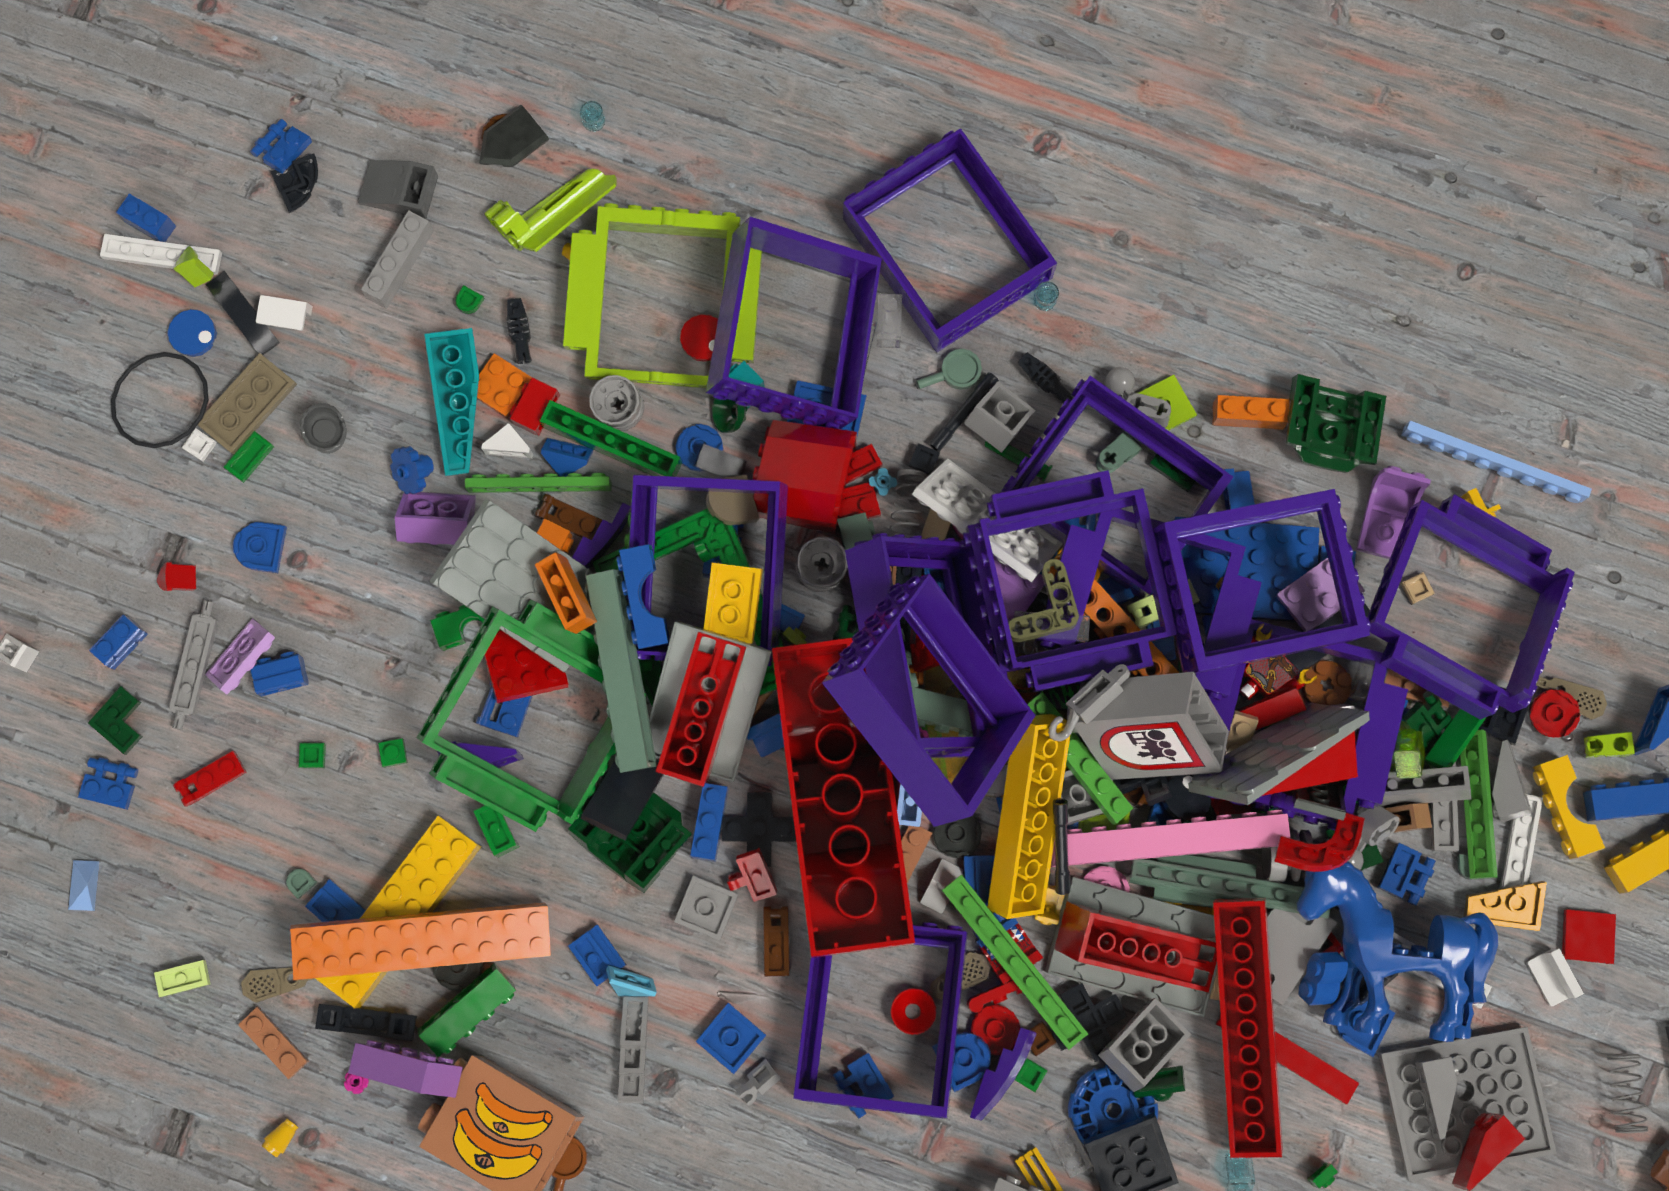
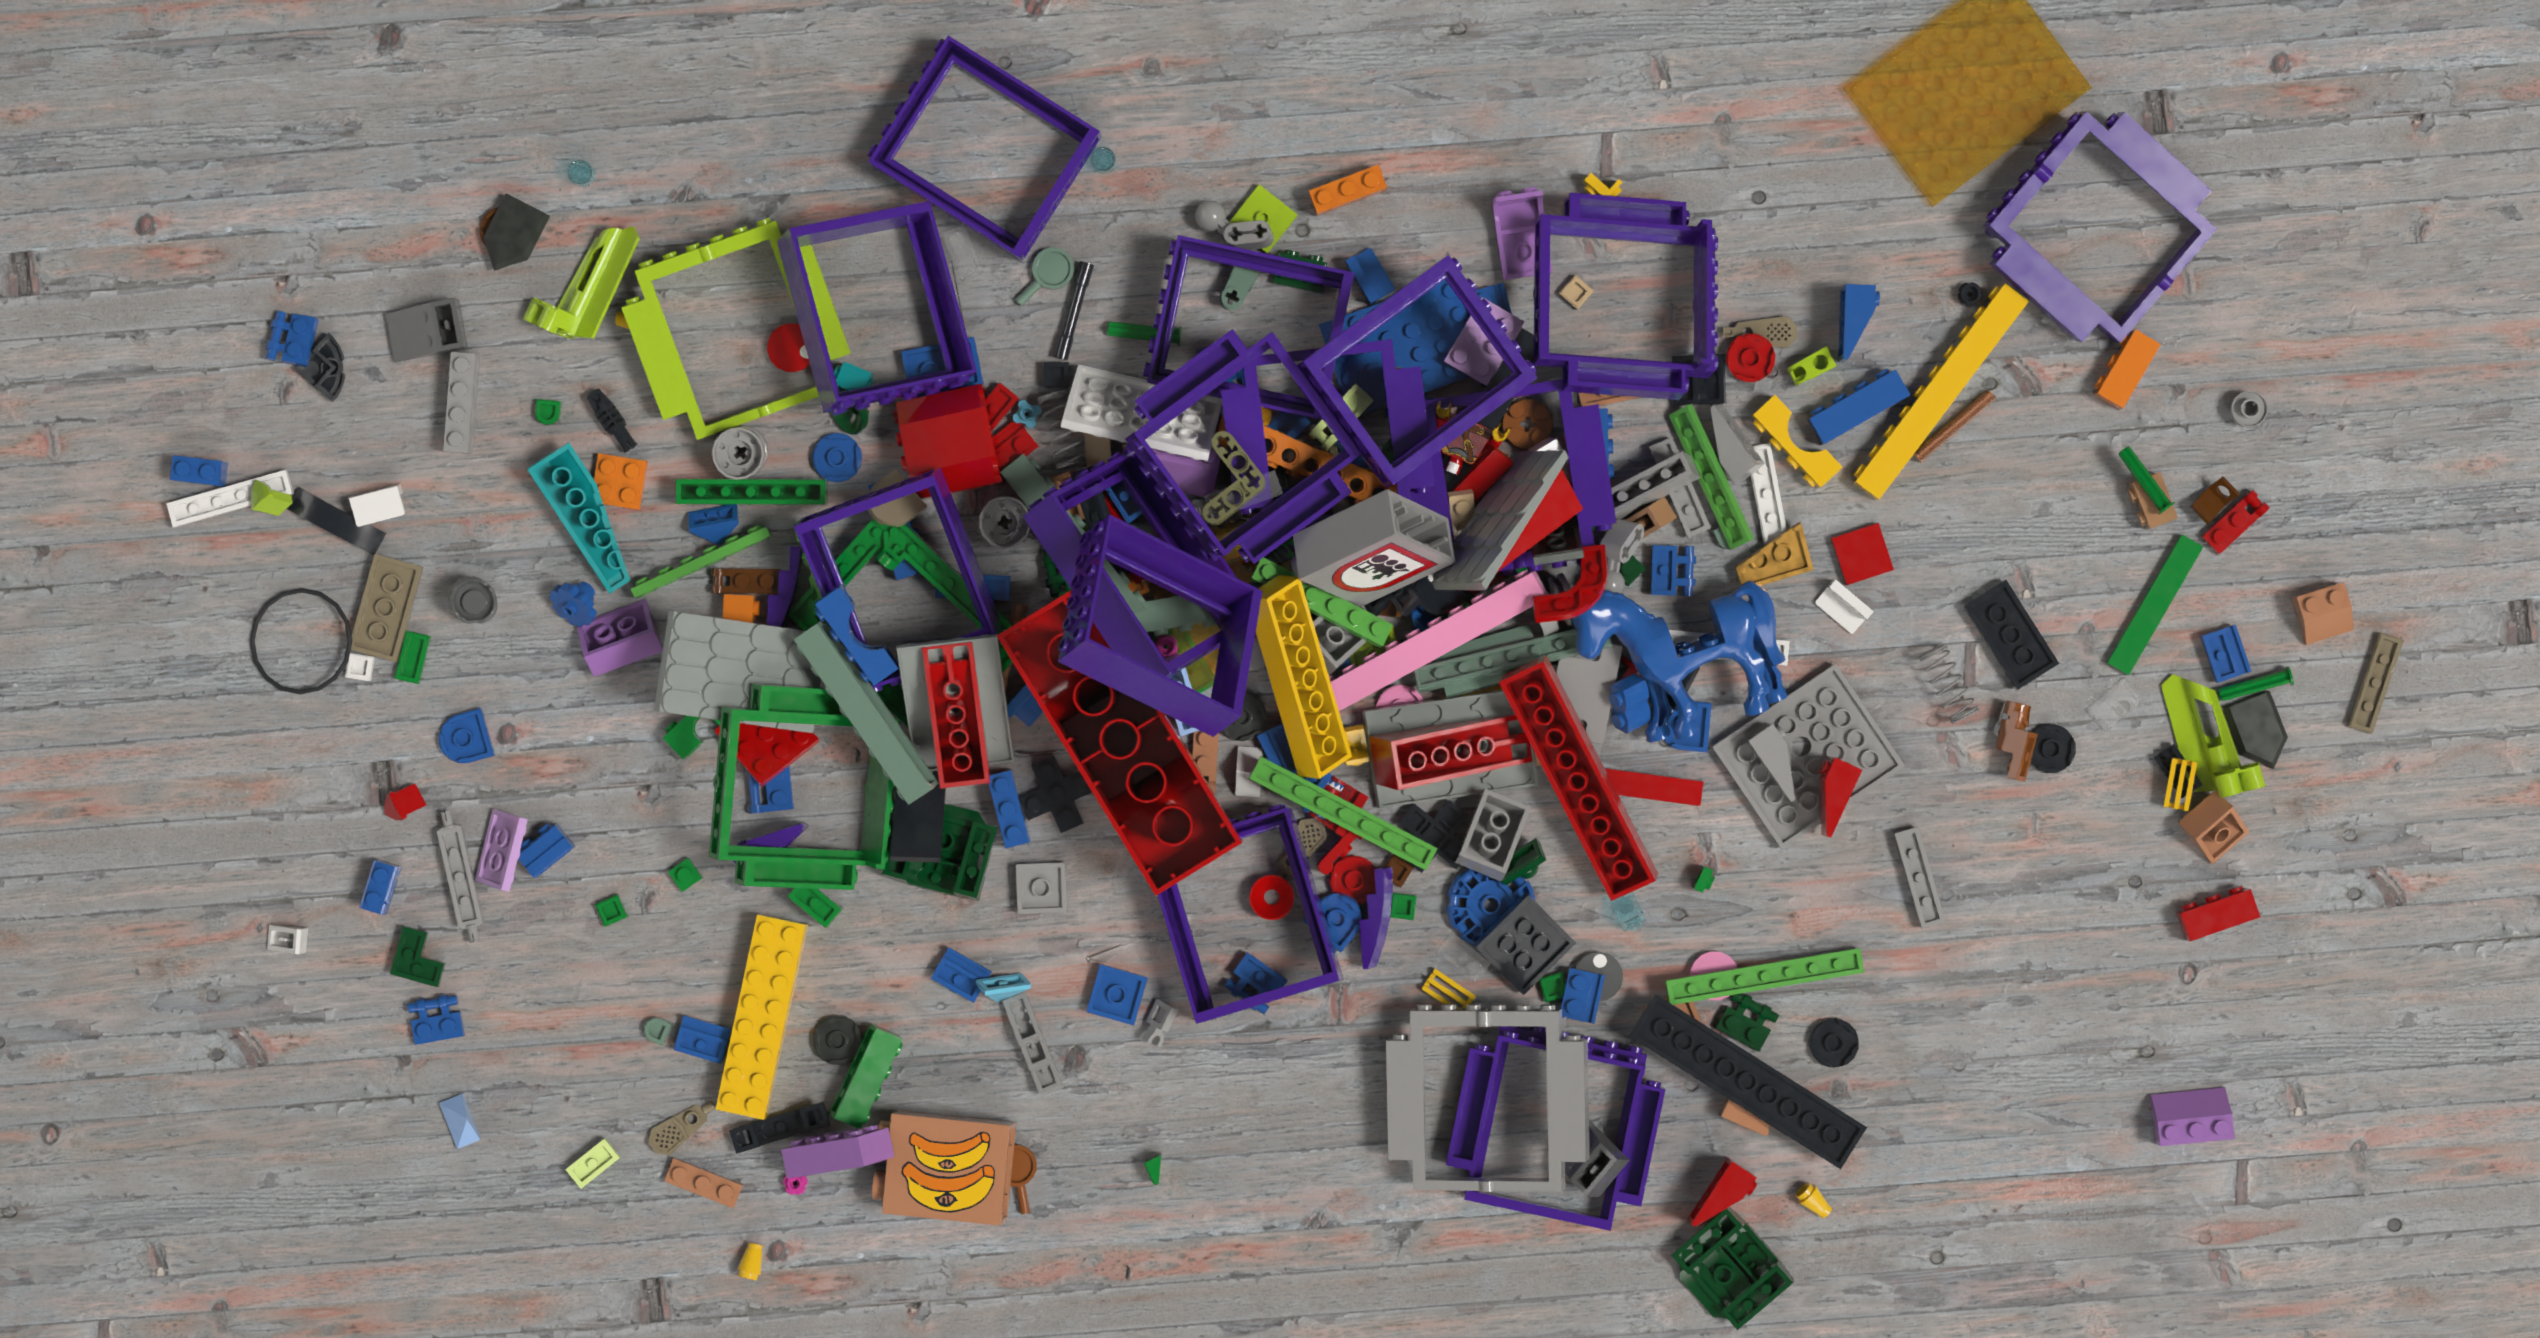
camera: 20 degrees left, 10 degrees up
(192, 333) = (298, 562): blue tile -> none
(210, 778) = (528, 973): red plate -> none
(419, 940) = (796, 1033): orange brick -> none
(507, 443) = (652, 536): white slope -> none
(532, 405) = (661, 488): red brick -> none
(565, 593) = (783, 664): orange brick -> none
(719, 462) = (864, 465): tile -> none
(733, 601) = (940, 603): yellow plate -> none
(754, 875) = (1071, 839): plate -> none
(776, 942) = (1119, 890): reddish brown plate -> none
(794, 637) = (1011, 603): lime plate -> none
(999, 416) = (1110, 304): light grey brick -> none
(1044, 377) = (1136, 242): black hinge -> none
(1060, 820) = (1351, 711): black piece -> none
(1091, 700) = (1308, 551): light grey piece -> none
(1334, 426) = (1431, 169): dark green slope -> none
(1409, 754) = (1626, 461): clear neon green brick -> none
(1420, 719) = (1631, 427): dark green plate -> none
(1453, 740) = (1664, 429): green tile -> none
(1503, 465) = (1612, 137): light blue plate -> none

